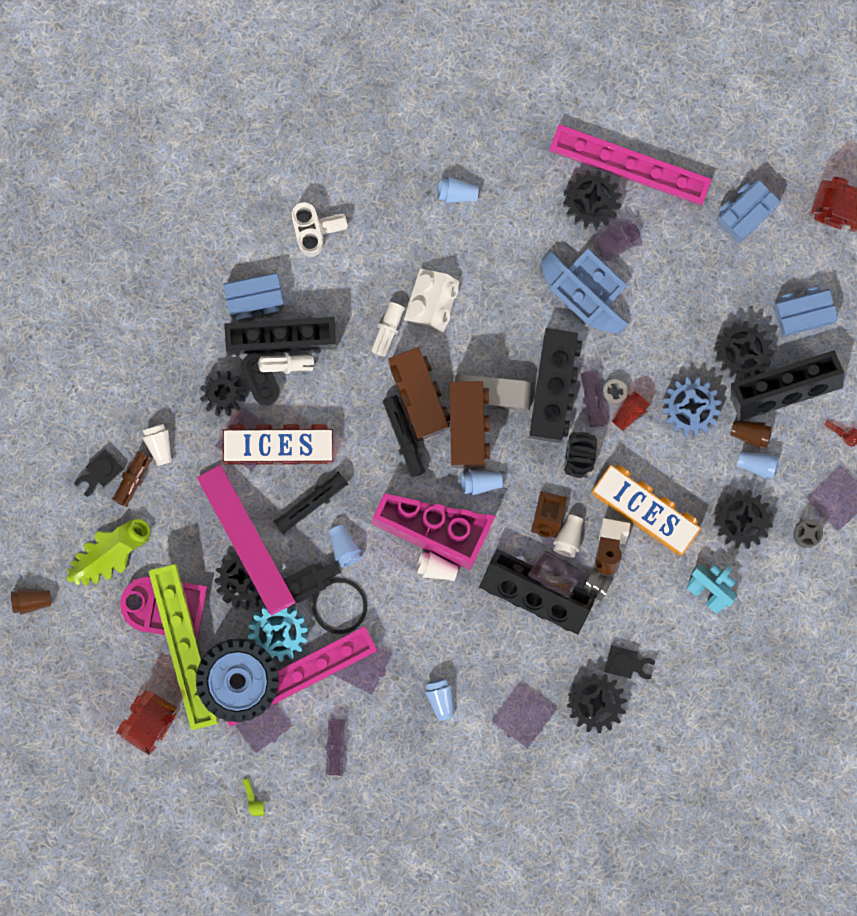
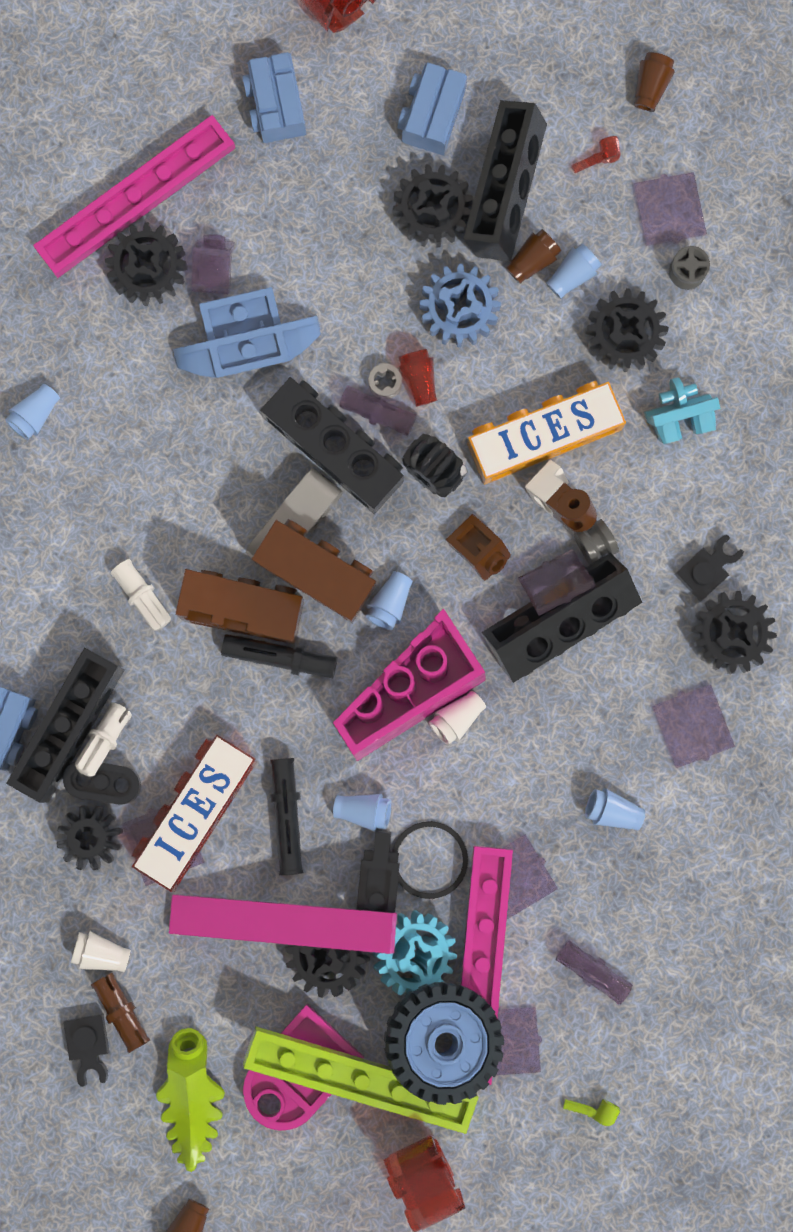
camera: 55 degrees left, 0 degrees up
(432, 299) = (140, 521): white bracket -> none
(569, 537) = (522, 542): white cone -> none

